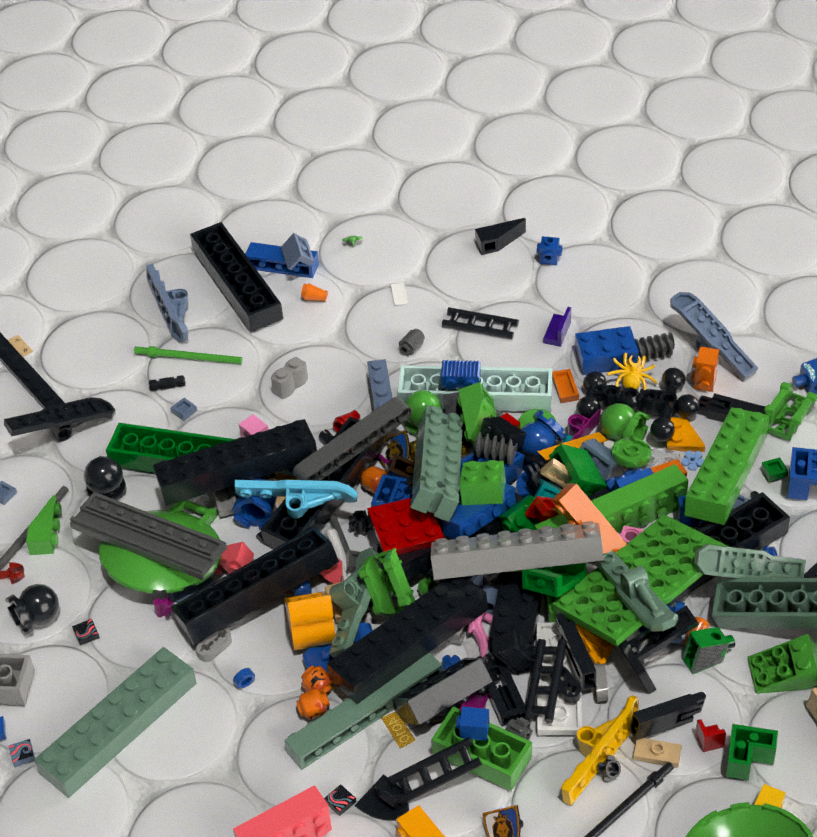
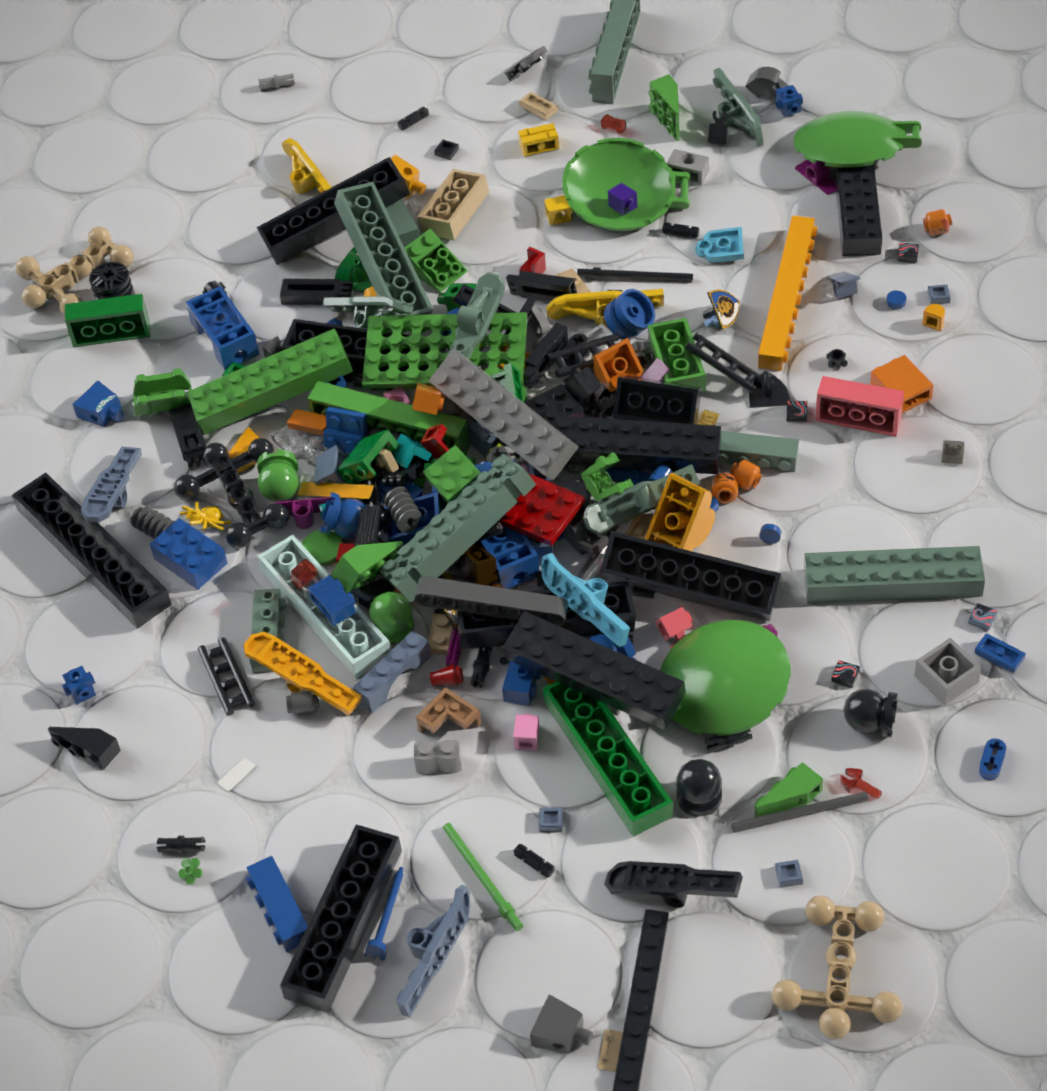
camera: 130 degrees left, 5 degrees up
(55, 327) = (559, 1027): none -> dark grey torso
(148, 535) = (734, 663): dark grey plate -> none
(202, 281) = (376, 946): none -> blue piece
(296, 250) = (270, 873): sand blue panel -> none
(312, 403) = (447, 706): none -> medium nougat panel
(313, 293) = (304, 838): orange cone -> none
(374, 242) = (181, 844): none -> black pin
(429, 340) = (300, 671): none -> light orange piece
(473, 723) = (671, 351): blue brick -> none
(489, 352) = (267, 618): none -> sand green brick
(500, 373) = (303, 573): none -> clear red brick
(508, 692) = (615, 362): none -> orange slope
(558, 328) = (183, 609): dark purple panel -> none
(561, 742) = (629, 314): none -> blue wheel
(565, 386) = (249, 565): orange tile -> none
(625, 689) = (539, 321): none -> light grey beam
(631, 452) = (311, 445): bright green tile -> none
(651, 302) = (92, 550): none -> black brick
(692, 461) = (266, 429): light blue plant -> none
(705, 369) = (160, 465): orange brick -> none
(749, 745) = (521, 236): green brick -> none
(777, 497) = (272, 347): none -> dark grey slope

